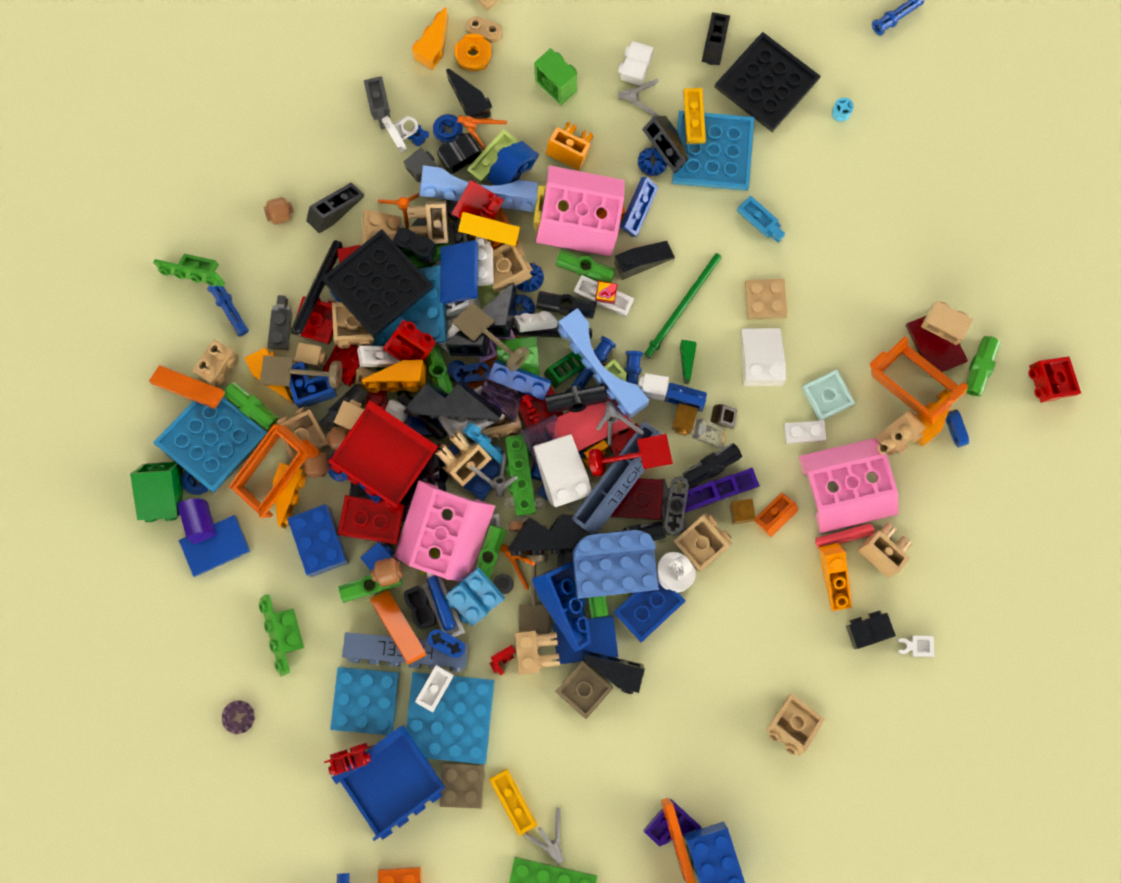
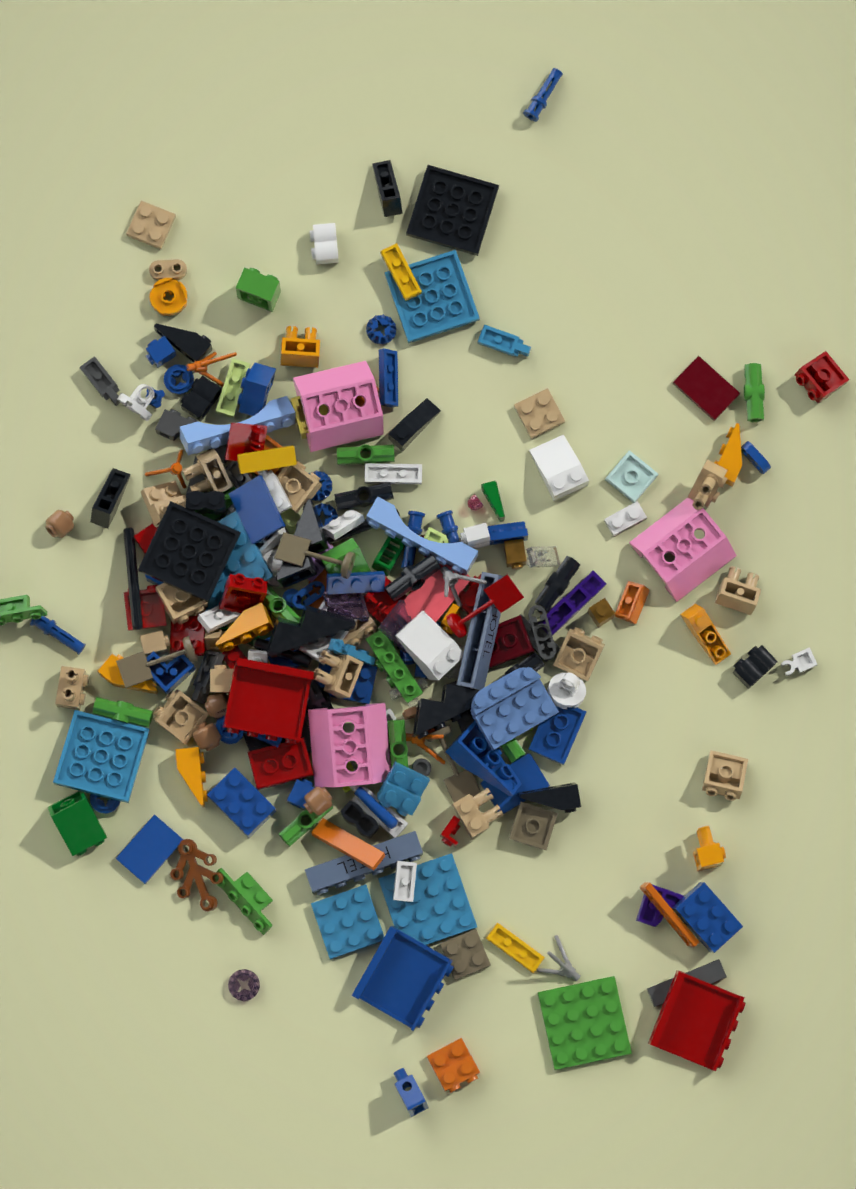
camera: 30 degrees left, 0 degrees up
(187, 387) = (56, 720): orange tile -> none
(196, 520) = (125, 832): dark purple brick -> none
(244, 588) = (196, 872): none -> dark orange plant
(280, 325) = (111, 628): dark grey hinge -> none
(305, 450) = (193, 725): orange piece -> none
(357, 758) = (350, 975): red hinge -> none
(431, 45) = (127, 308): light orange slope -> none
(441, 97) = (160, 352): none -> blue brick
(443, 647) = (398, 834): blue beam -> none
(499, 482) = (378, 681): light grey plant -> none
(606, 292) = (395, 470): tile -> none
(632, 95) = (334, 274): light grey plant -> none
(655, 344) = (458, 498): green bar -> none
(666, 141) = (387, 307): black slope -> none
(667, 355) = (474, 503): none -> clear pink hinge
(723, 416) = (548, 535): dark brown slope -> none
(744, 798) = (710, 852): none -> light orange brick
(841, 105) = (532, 203): medium azure wheel -> none
(845, 535) = (699, 594): coral axle -> none
(885, 359) = (667, 424): orange piece -> none
(947, 322) = (706, 369): tan brick -> none

